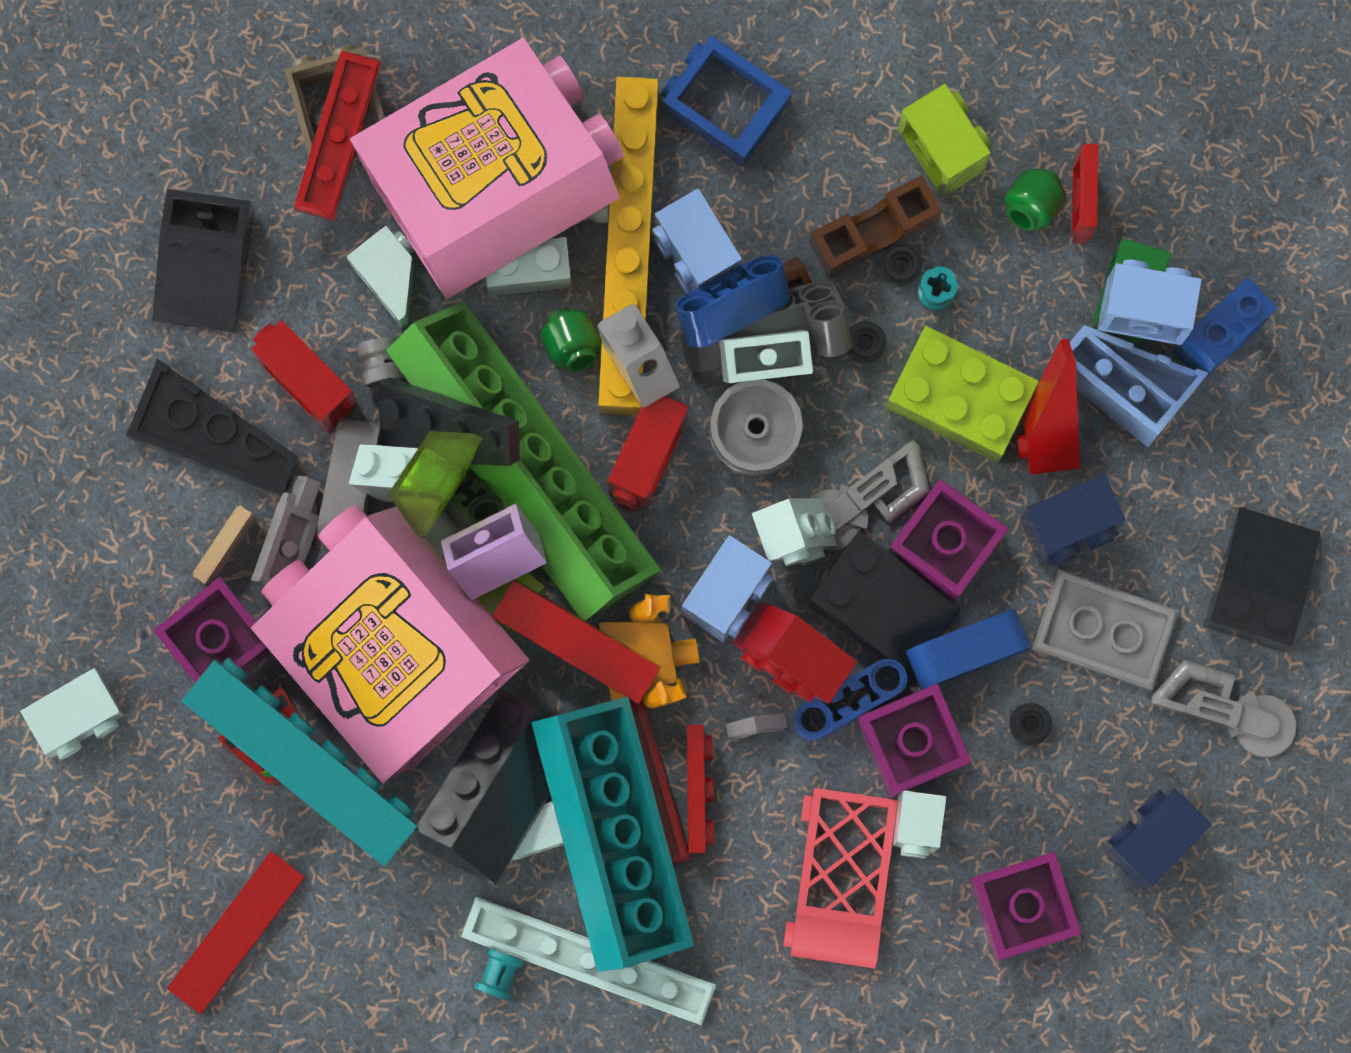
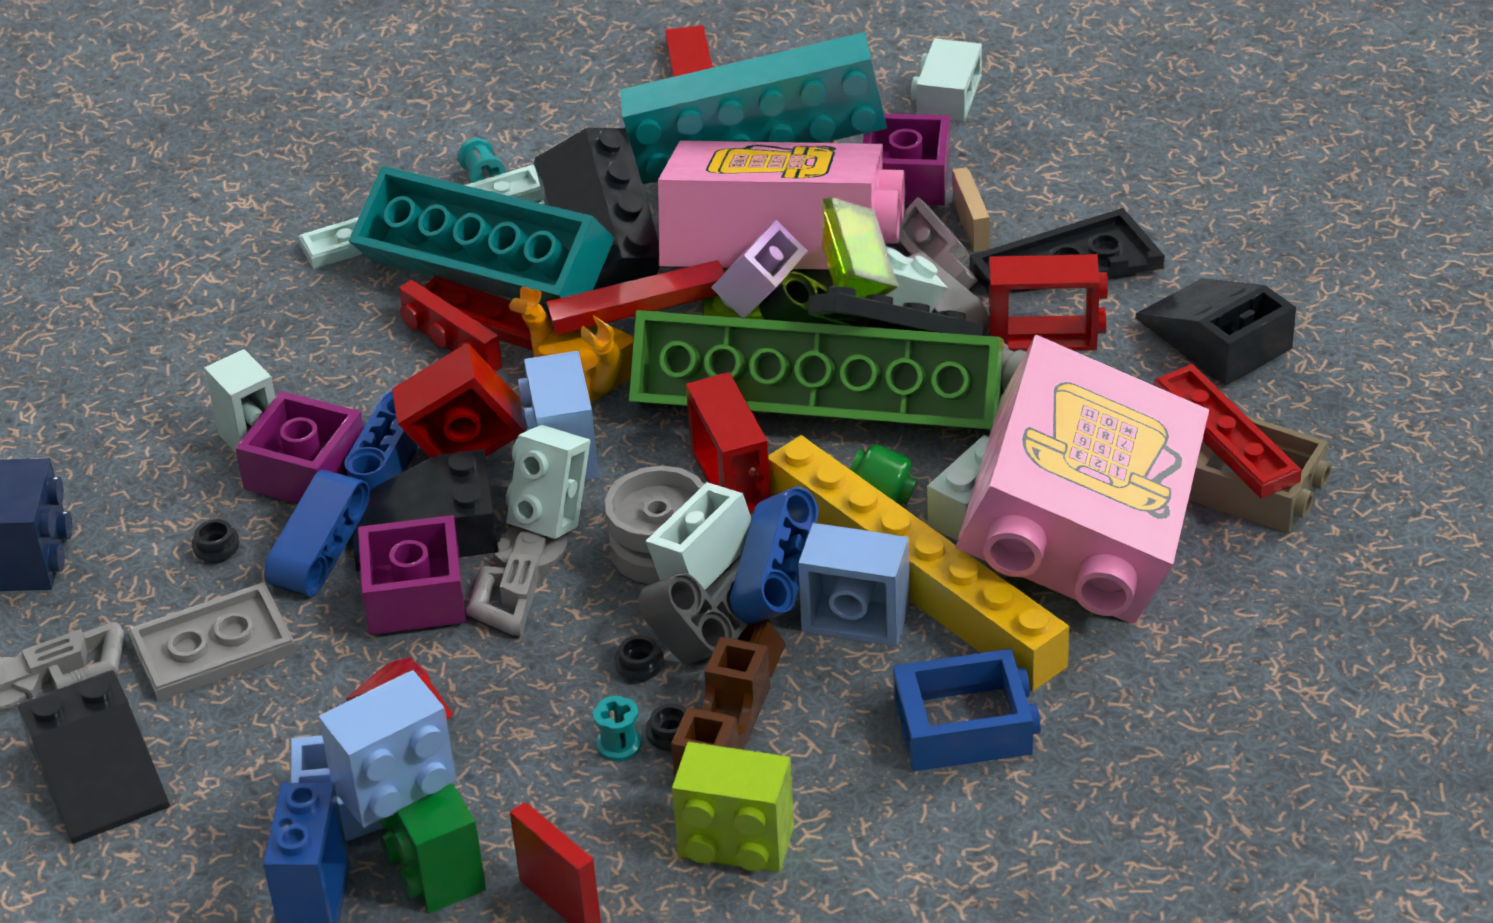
camera: 140 degrees right, 40 degrees down
(629, 345) = (802, 430): light grey torso -> none
(831, 933) = (255, 329): coral piece -> none
(961, 394) = (511, 674): lime brick -> none
(1024, 906) = (102, 427): magenta brick -> none
(1034, 199) = (612, 847): green head -> none
(1073, 520) = (312, 650): dark blue brick -> none

